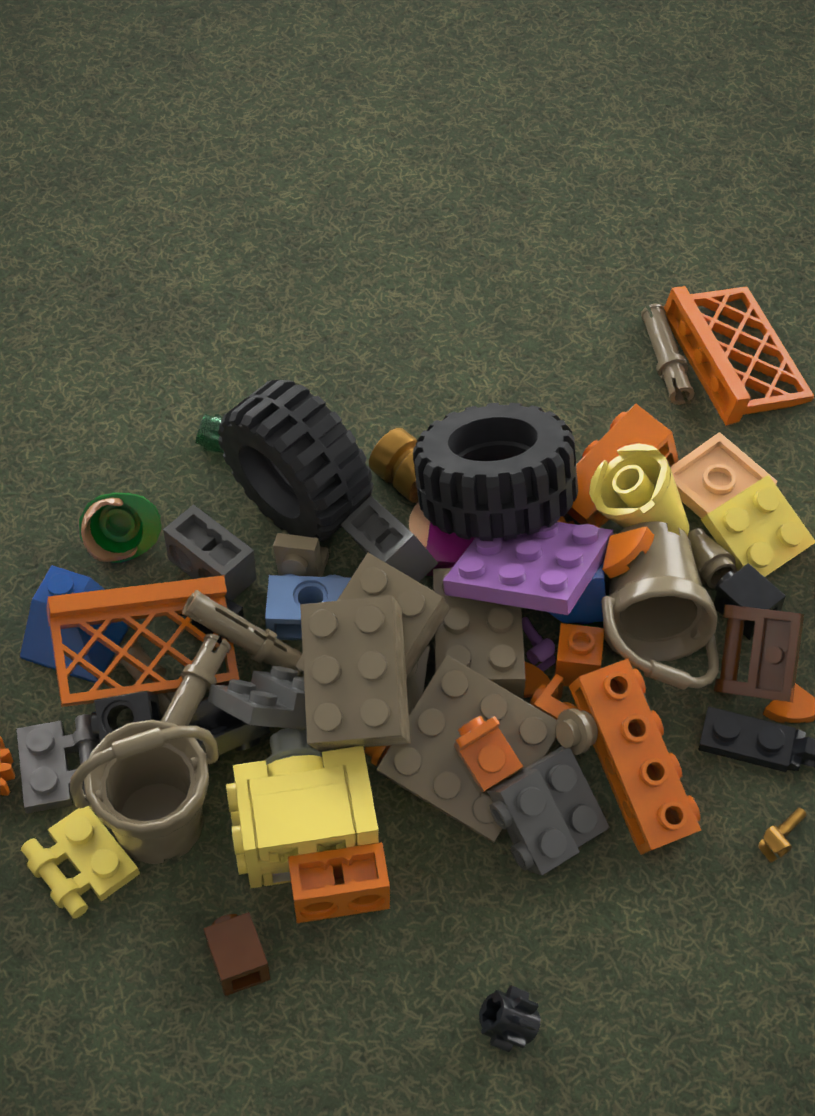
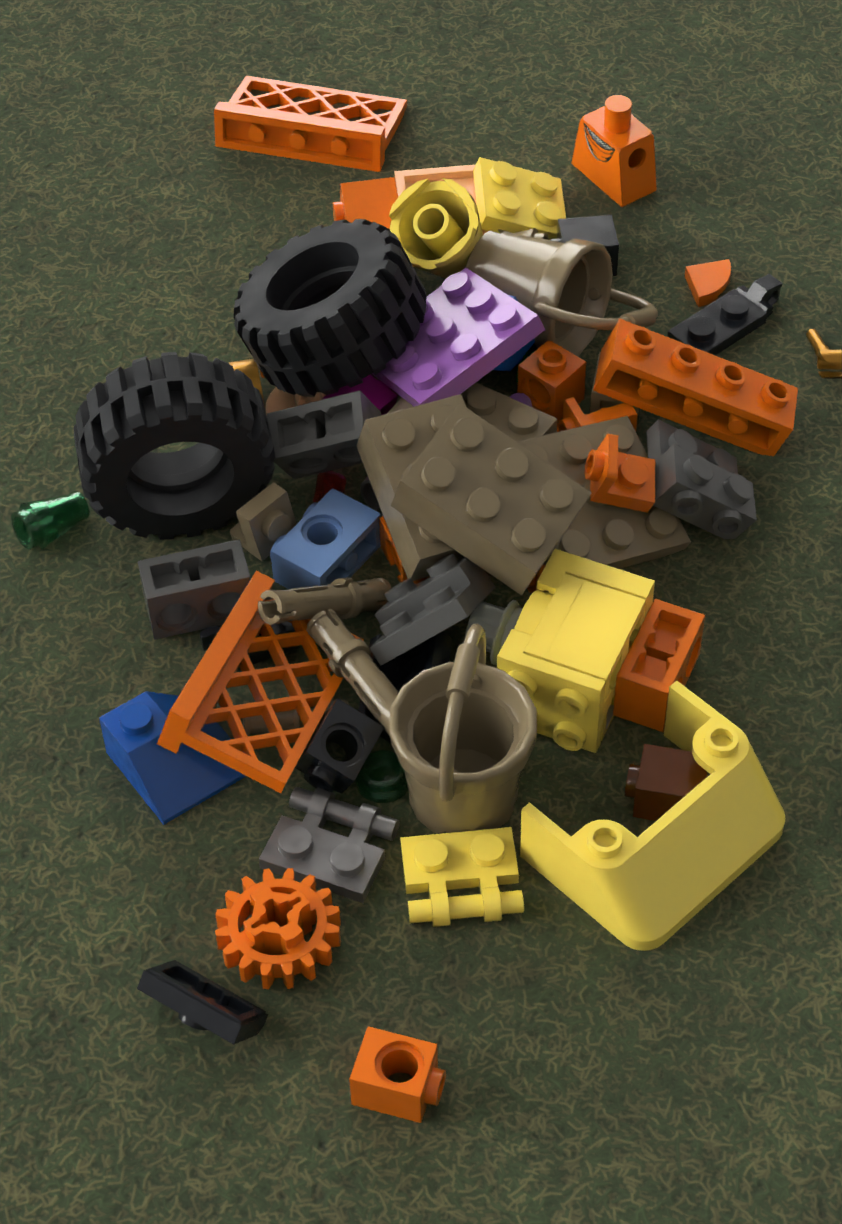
camera: 55 degrees left, 5 degrees down
(119, 526) = (90, 648): green piece -> none
(186, 1000) = (671, 871): none -> light yellow windscreen
(576, 730) = (648, 404): dark tan plate -> none
(624, 548) = (500, 264): orange tile -> none
(670, 365) = (285, 165): dark tan pin -> none
(772, 653) = (665, 252): reddish brown plate -> none

